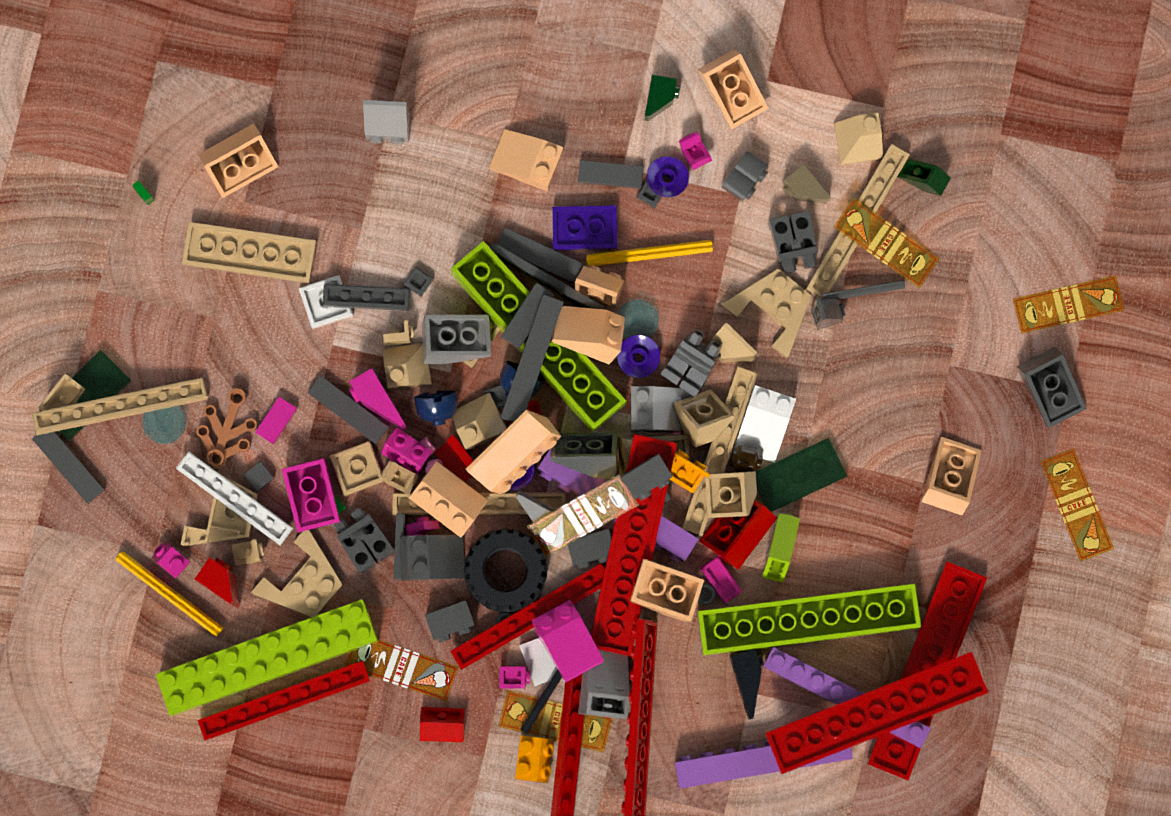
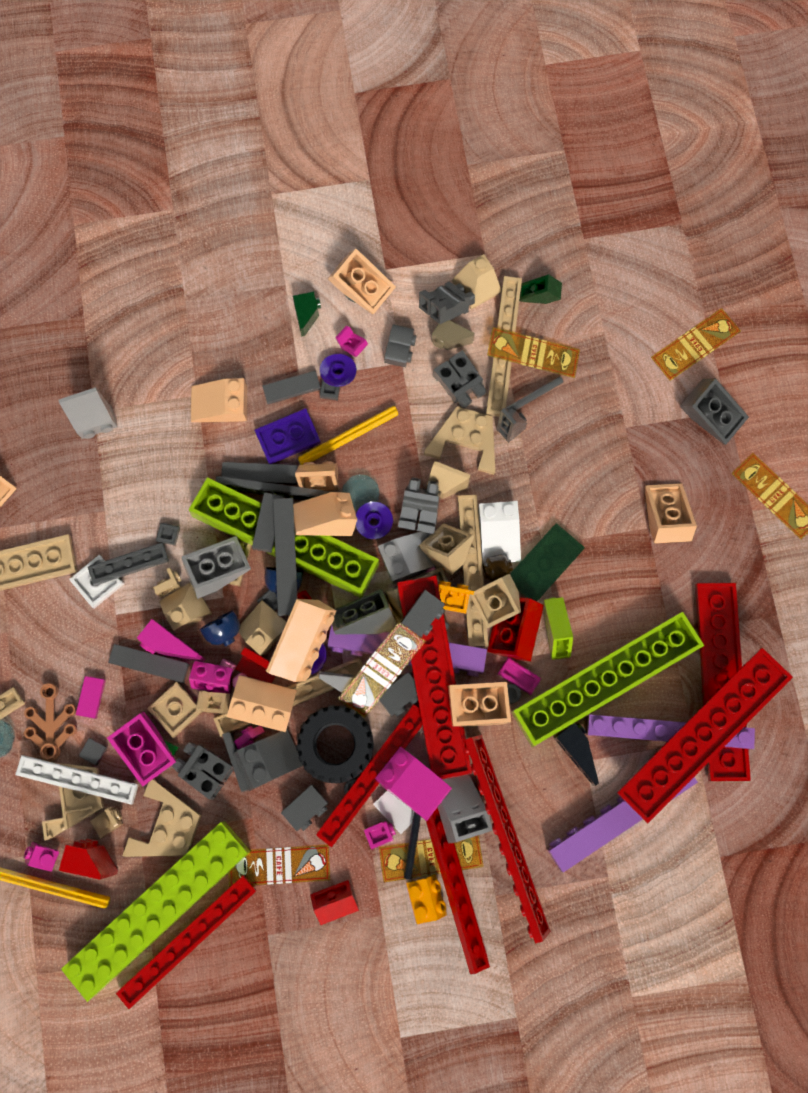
camera: 20 degrees left, 5 degrees down
(814, 149) = (446, 302): none -> dark grey hips

